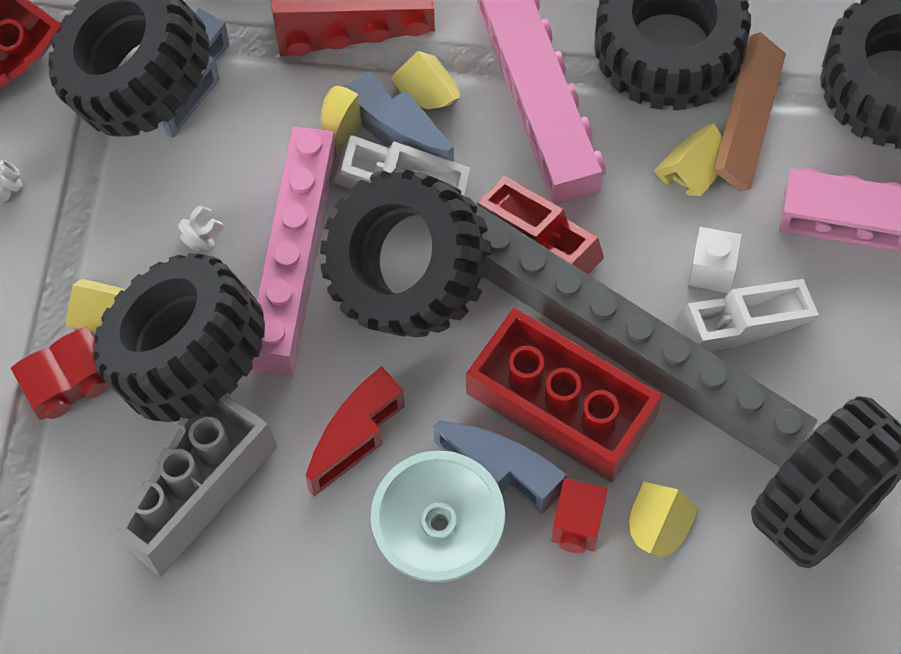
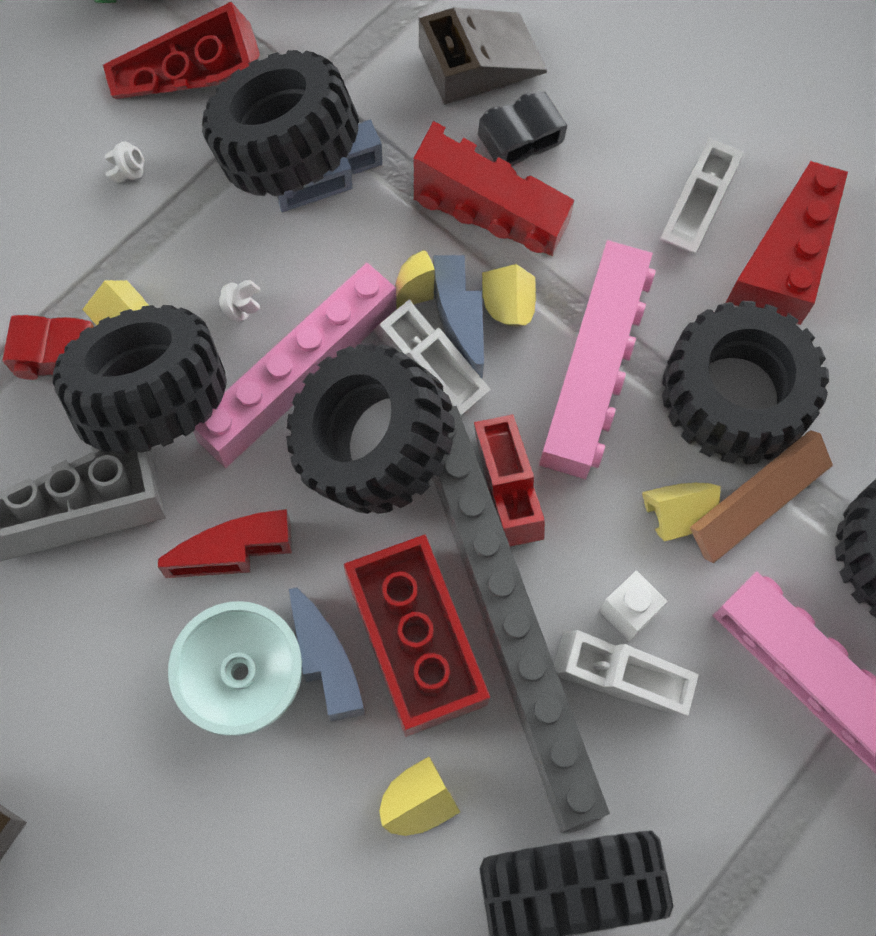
camera: 30 degrees right, 5 degrees up
(578, 516) = (352, 748): red brick -> none

